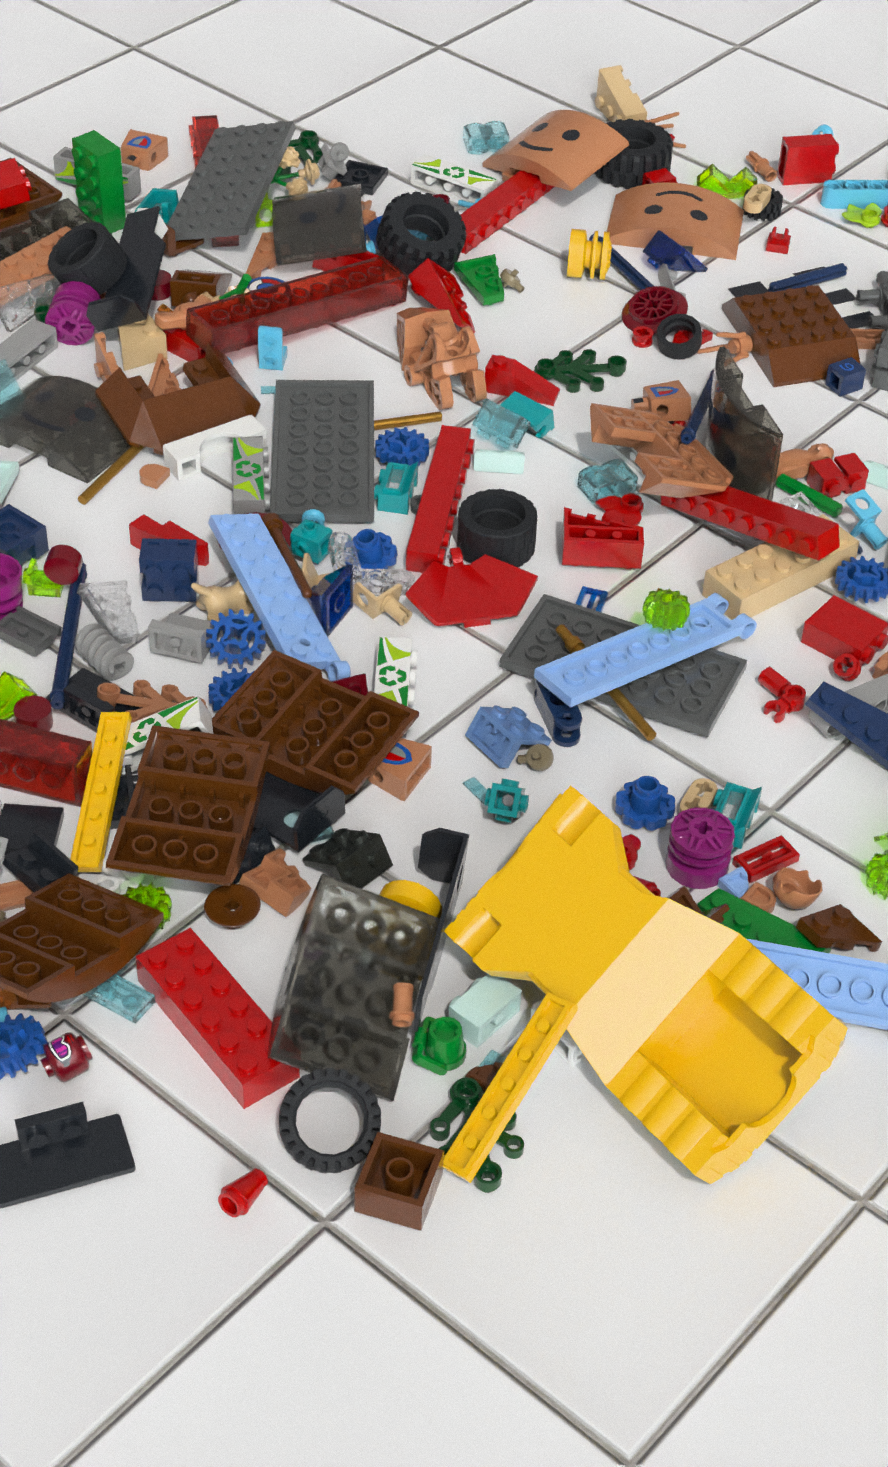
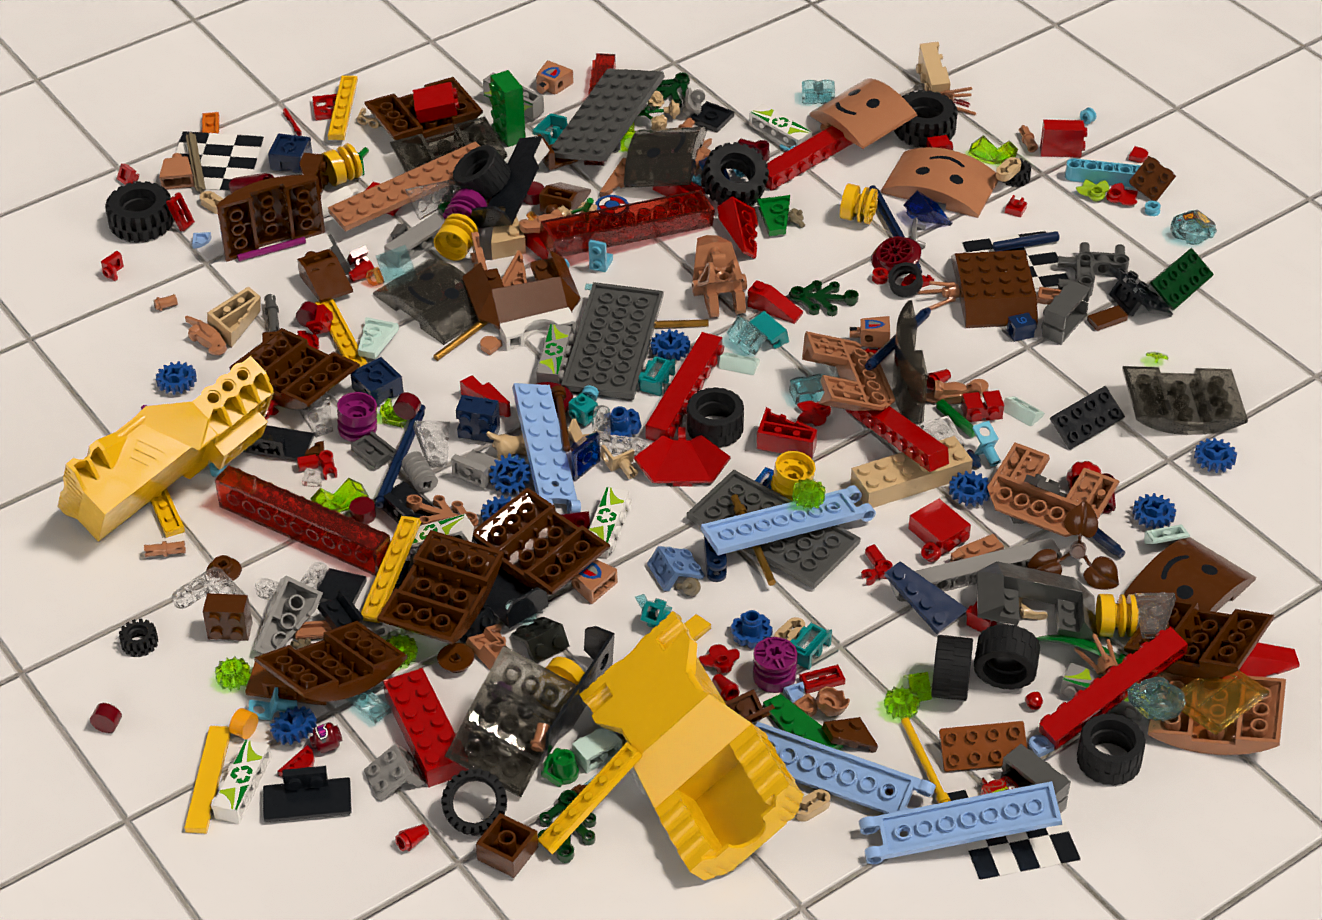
camera: 15 degrees right, 0 degrees up
(35, 1099) = (301, 760): none -> red tile
(69, 344) = (455, 237): none -> yellow wheel
(183, 1095) = (392, 771): none -> light grey bracket
(627, 587) = (789, 469): none -> yellow wheel

